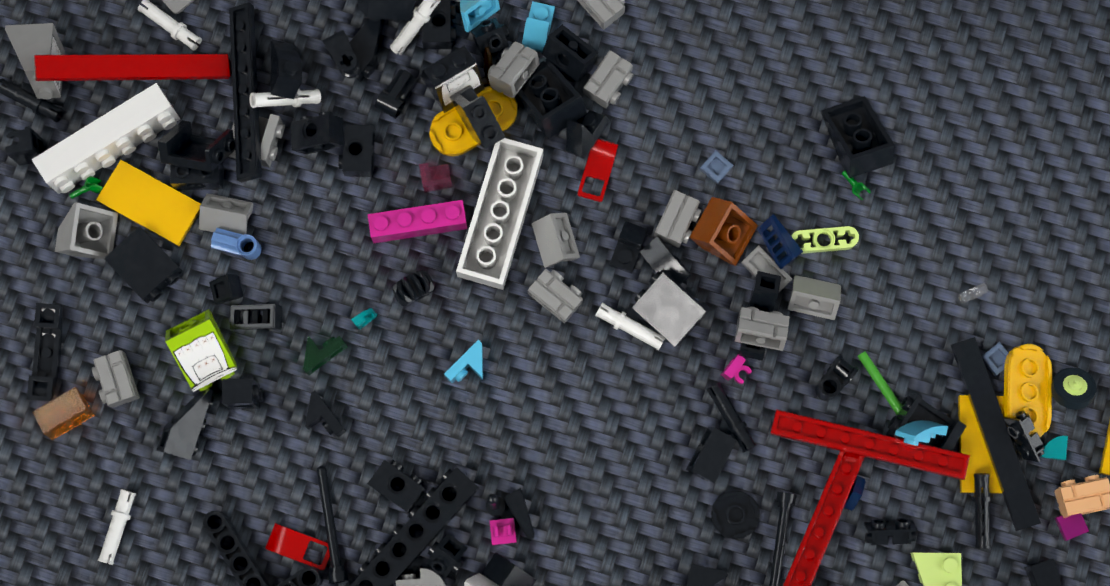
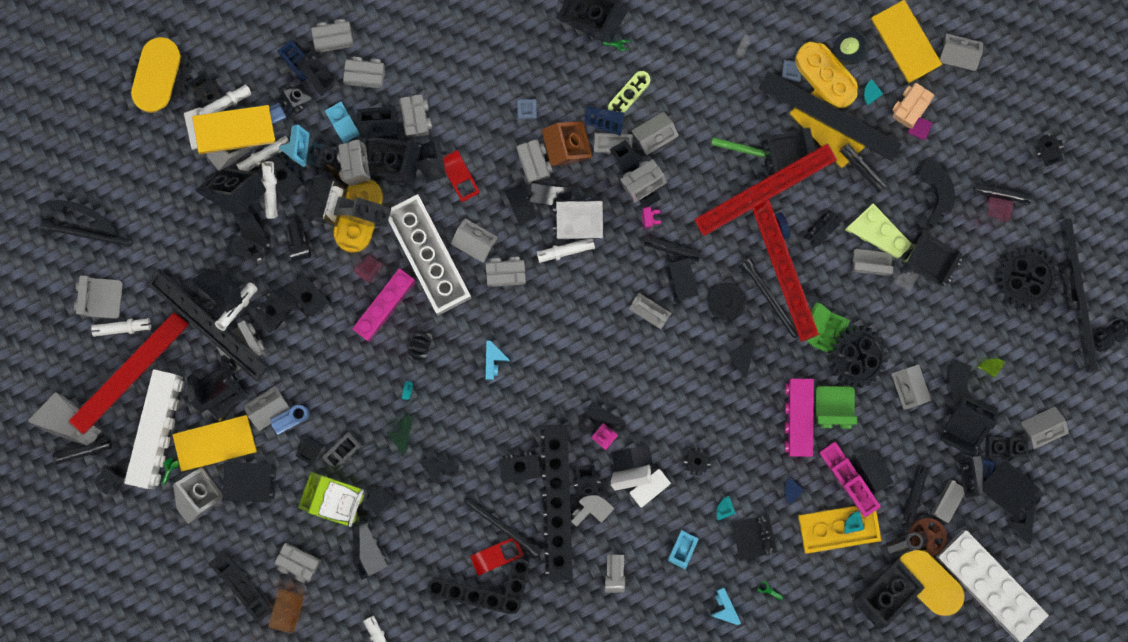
camera: 40 degrees left, 5 degrees up
(655, 455) = (650, 311): none -> light grey hinge
(838, 376) = (711, 166): black piece -> none
(920, 431) = (787, 155): medium azure slope -> none
(1029, 446) = (855, 105): black hinge -> none

